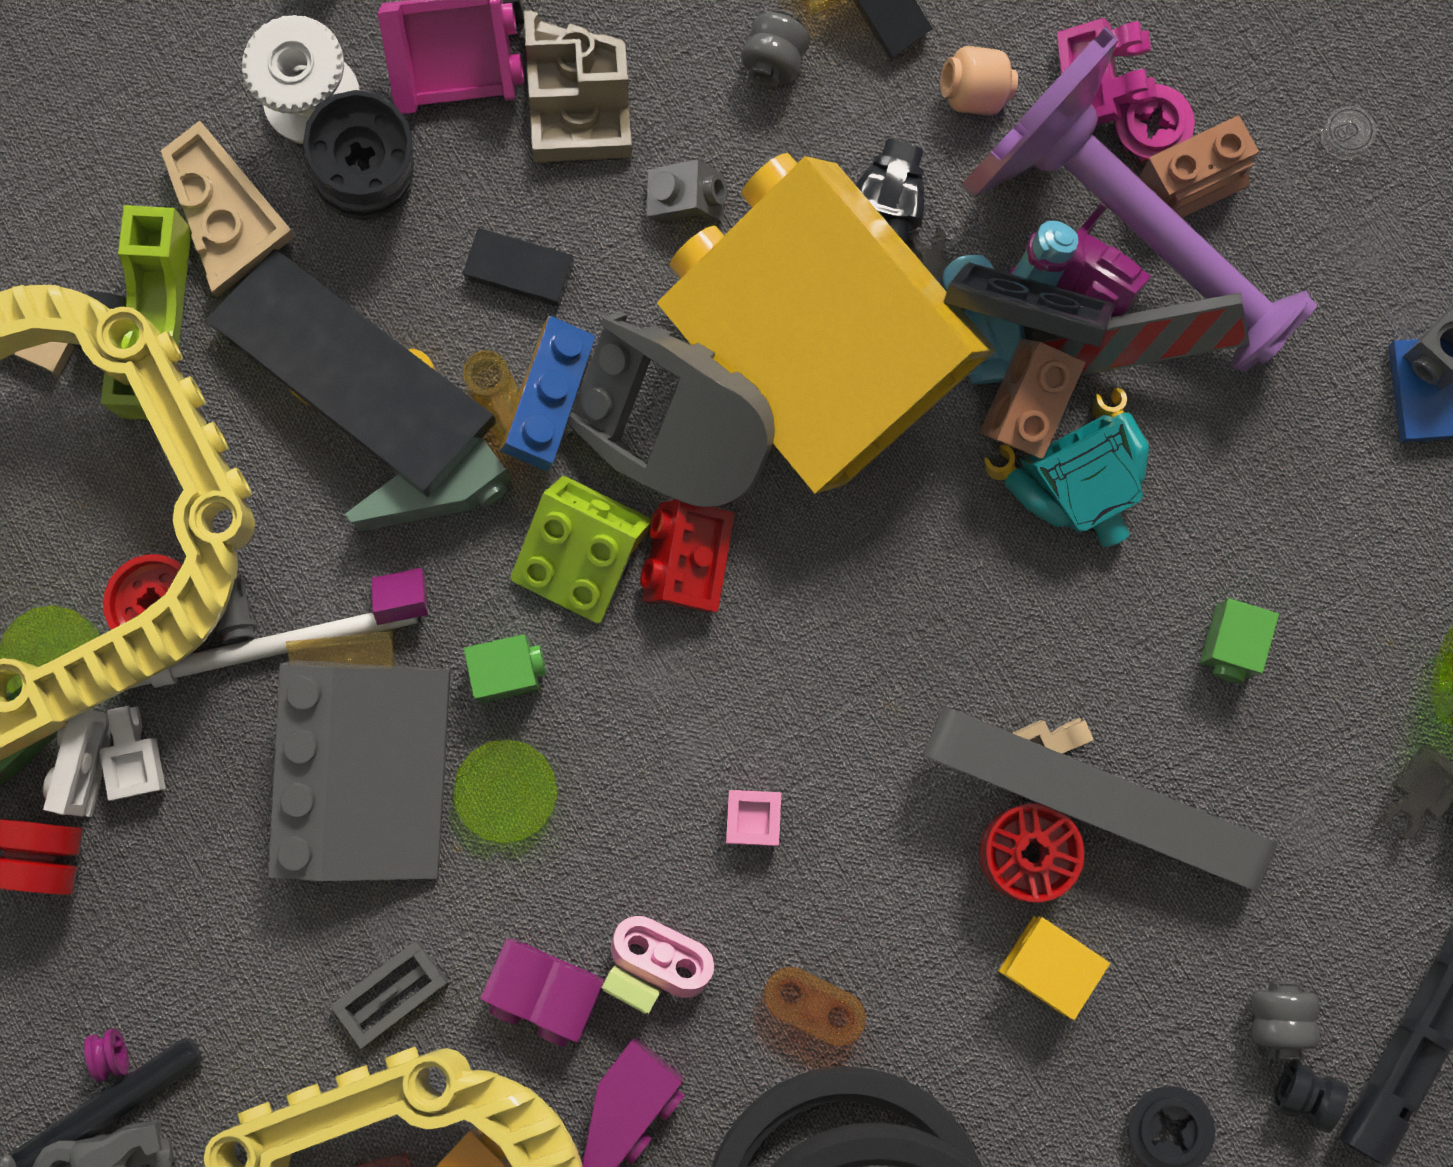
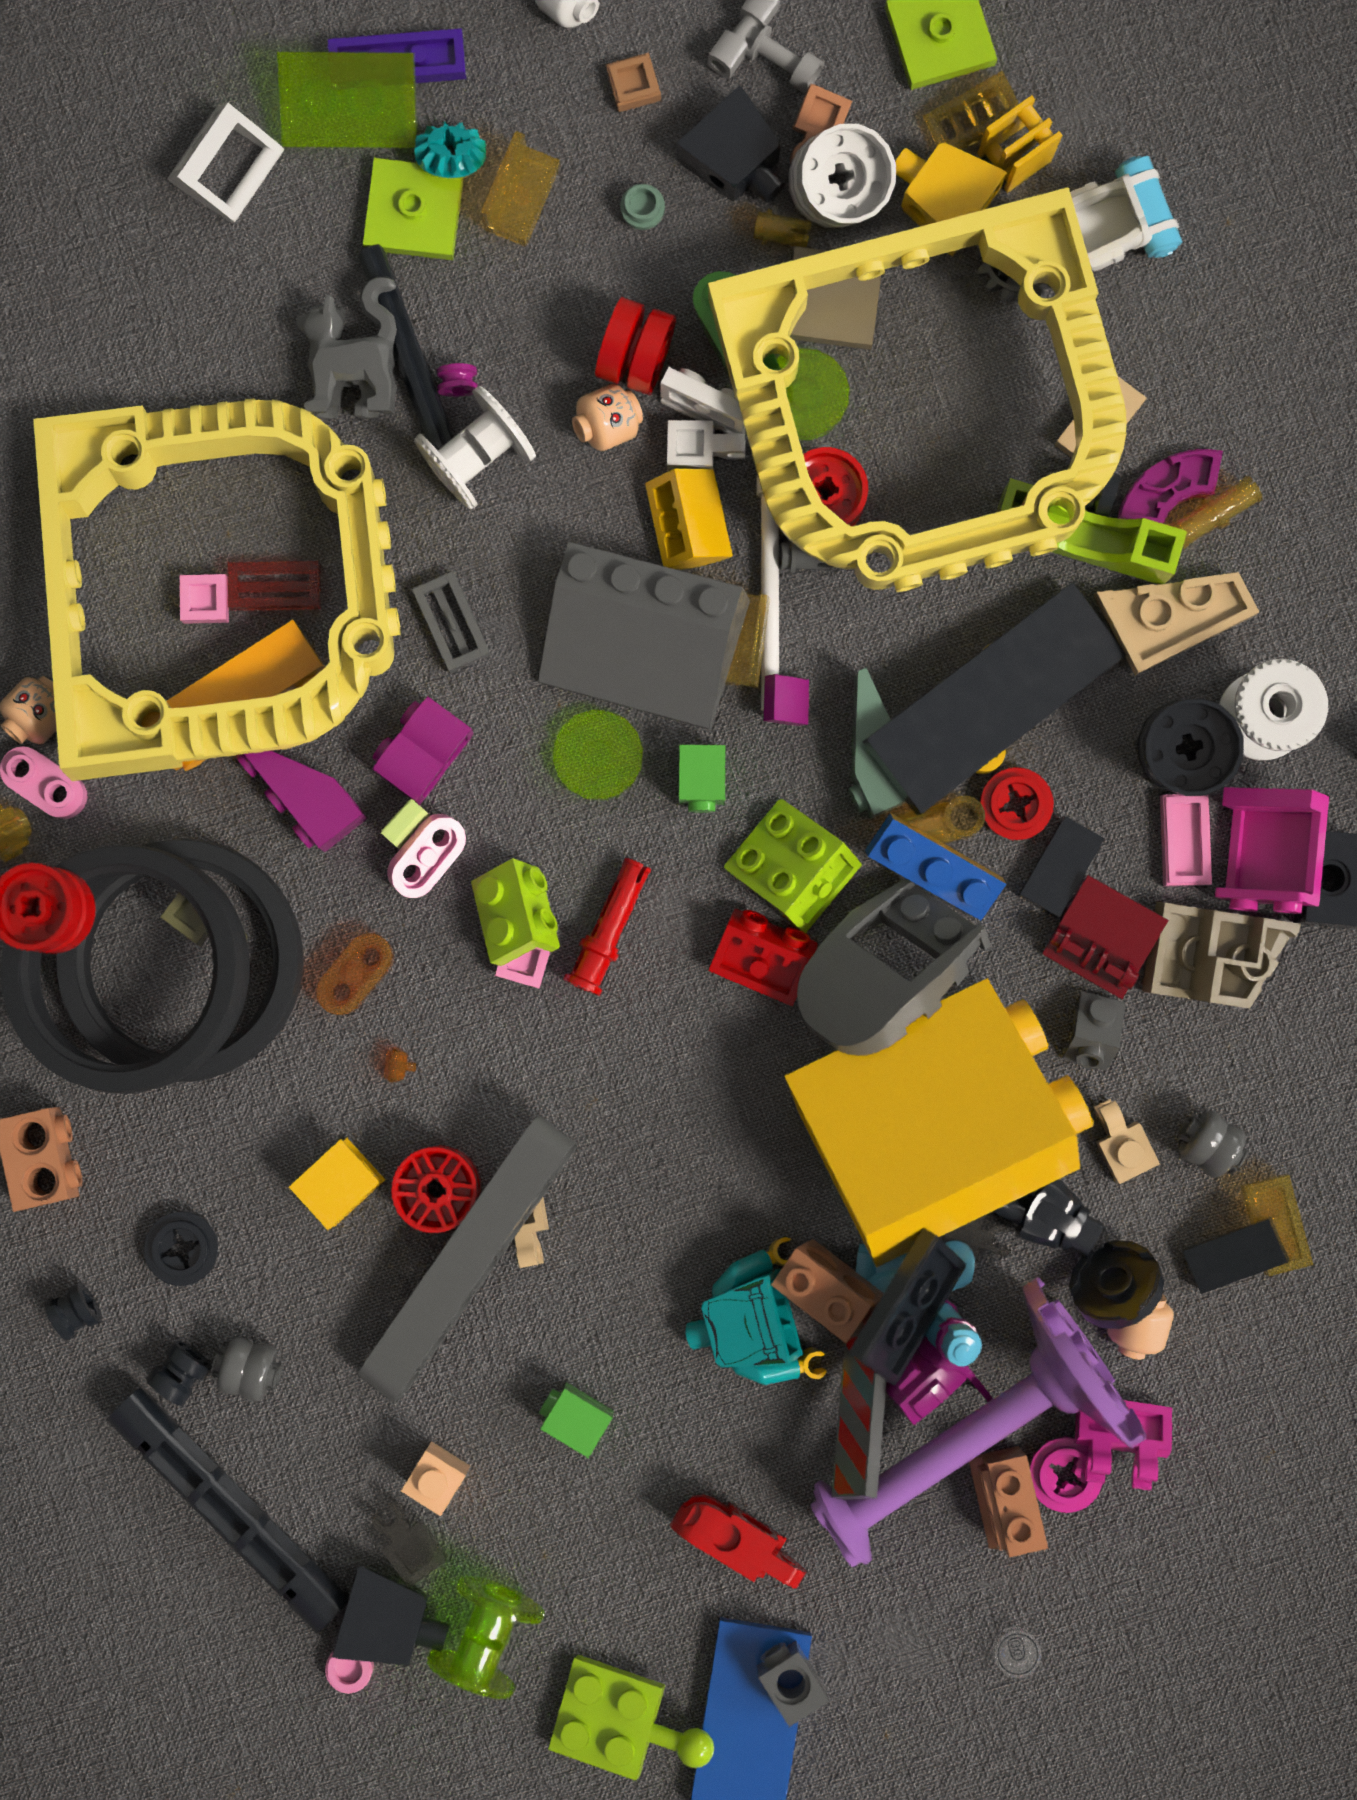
camera: 95 degrees right, 5 degrees up
(77, 244) = (1171, 482): none -> magenta tile
(97, 187) = (1218, 510): none -> clear yellow pin
(117, 870) = (607, 417): none -> light nougat head
(179, 1012) = (475, 447): none -> white hose
(216, 752) = (688, 518): none -> yellow brick
(461, 147) = (1185, 840): none -> bright pink tile
(468, 305) = (1024, 784): none -> red gear
(583, 203) = (1105, 937): none -> dark red hinge
(702, 840) = (514, 911): none -> lime bracket
(718, 736) = (599, 947): none -> red pin
(799, 133) = (1125, 1147): none -> tan plate
(904, 933) = (396, 1065): none -> clear orange rock
(946, 109) = (1116, 1284): none -> black tile
(1318, 441) = (736, 1540): none -> red piece
(1345, 777) = (436, 1478): none -> light nougat brick

